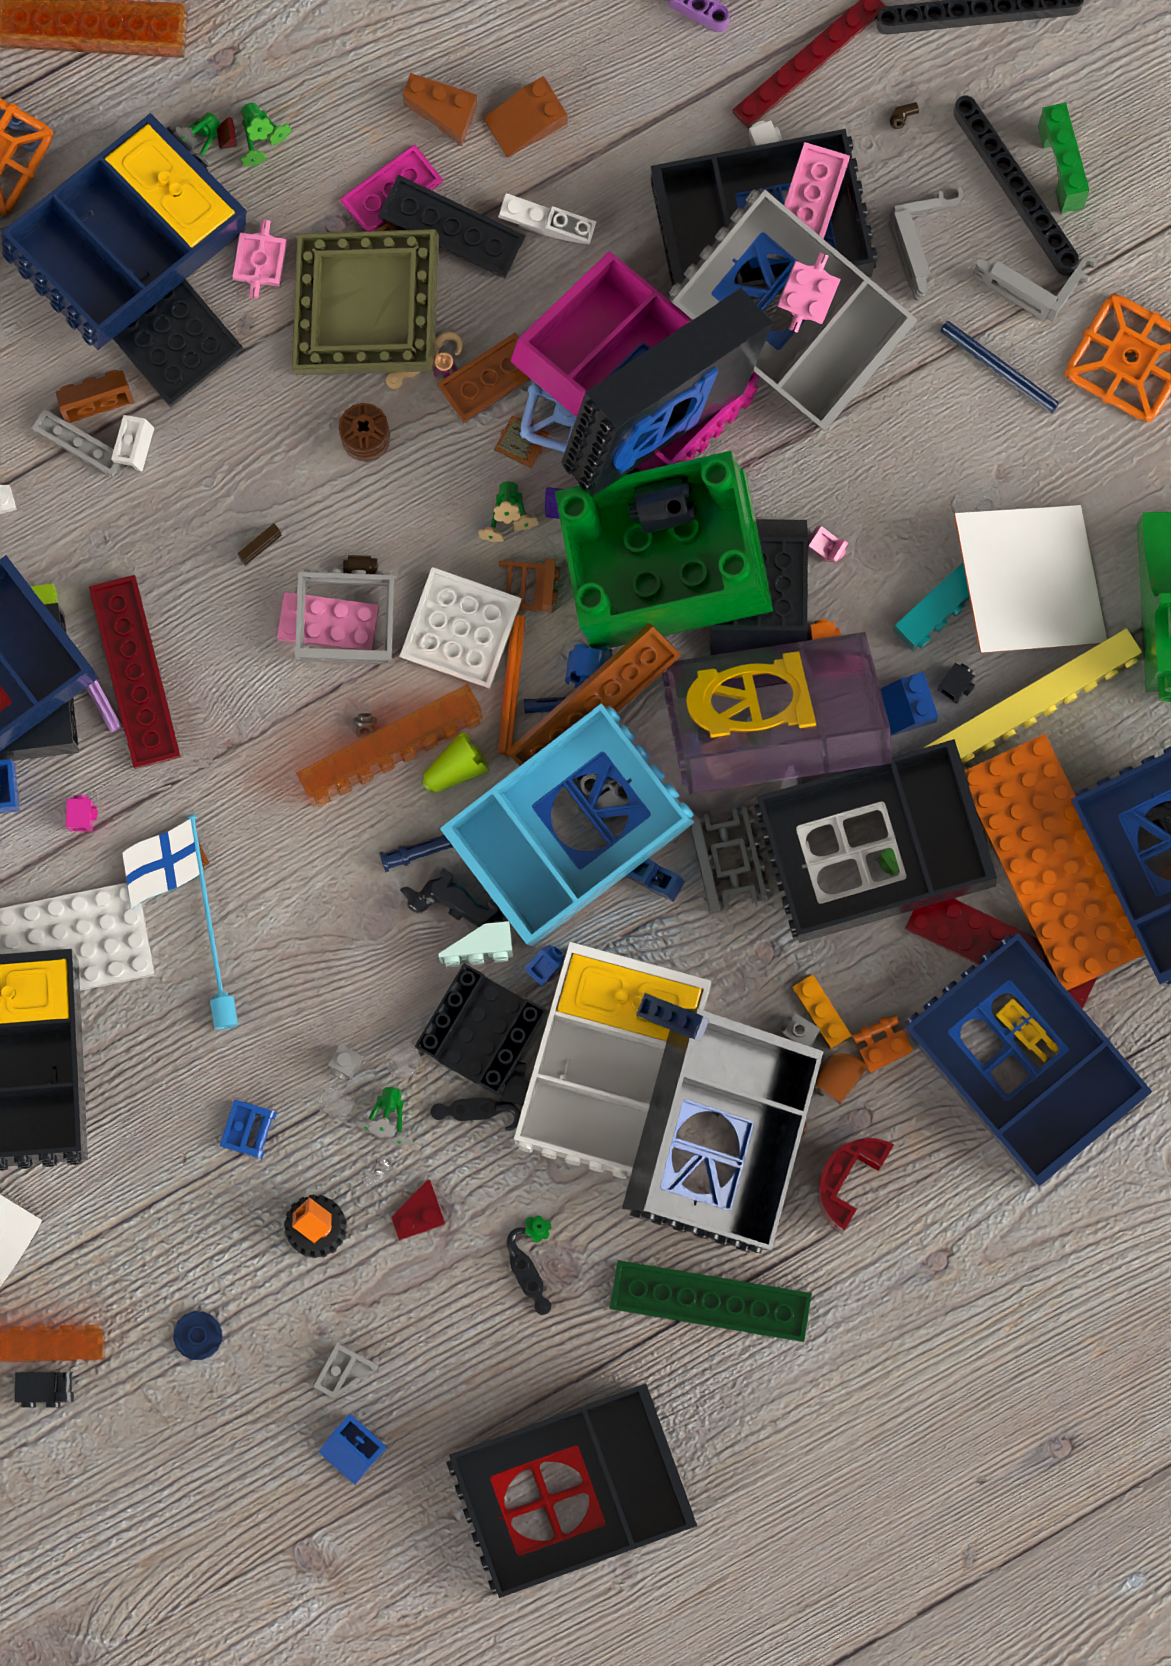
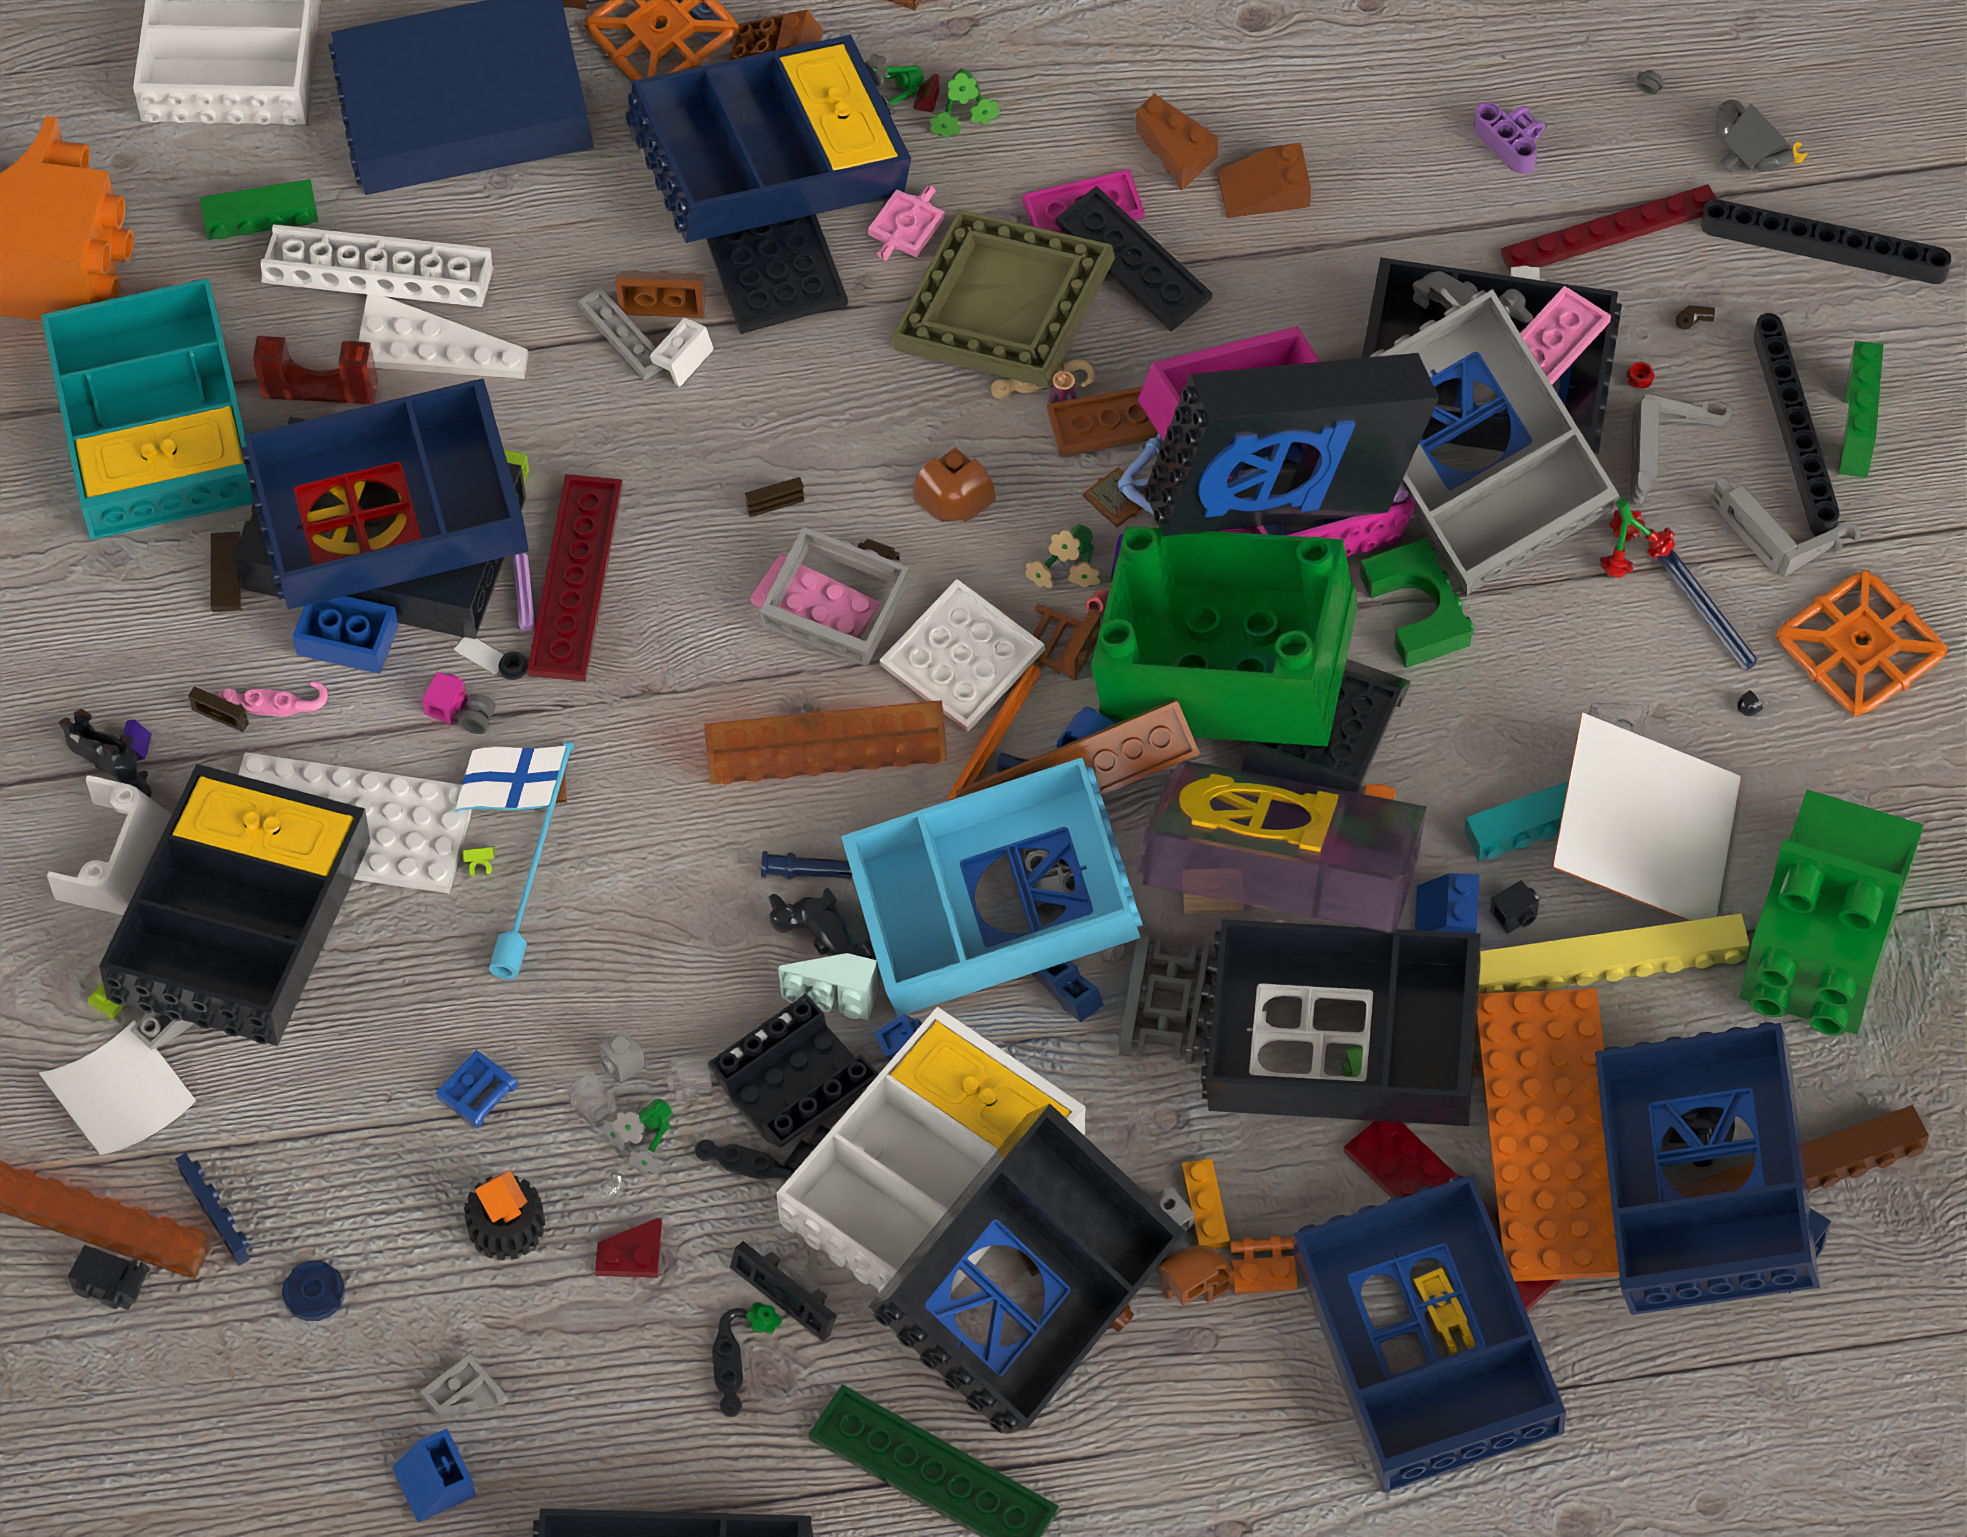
camera: 20 degrees right, 20 degrees down
(86, 132) = (775, 34): none -> dark orange slope
(87, 1295) = (220, 1218): none -> dark blue plate
(90, 763) = (479, 653): none -> white sticker
(111, 819) = (477, 713): none -> dark grey wheel
(119, 758) = (513, 659): none -> black plate
(166, 937) = (477, 856): none -> lime tile
(364, 445) = (943, 421): reddish brown wheel -> none
(395, 485) = (954, 487): none -> dark orange brick
(455, 765) = (891, 790): lime cone -> none
(544, 1203) = (783, 1291): none -> black hinge
(547, 221) = (1240, 288): white slope -> none
(549, 544) = (1101, 597): none -> coral cone
(656, 510) = (1234, 585): black cylinder -> none
(672, 1017) = (1018, 1110): dark blue tile -> none
(732, 185) = (1451, 292): none -> dark grey animal
(776, 420) = (1418, 568): none -> green arch
(808, 292) = (1502, 419): bright pink plate -> none
(826, 545) = (1421, 713): bright pink bracket -> none
(868, 1151) = (1150, 1371): dark red cylinder -> none
(885, 180) = (1640, 369): none -> red plate
(953, 335) = (1628, 525): none -> red plant
(1066, 443) = (1749, 704): none -> black hinge

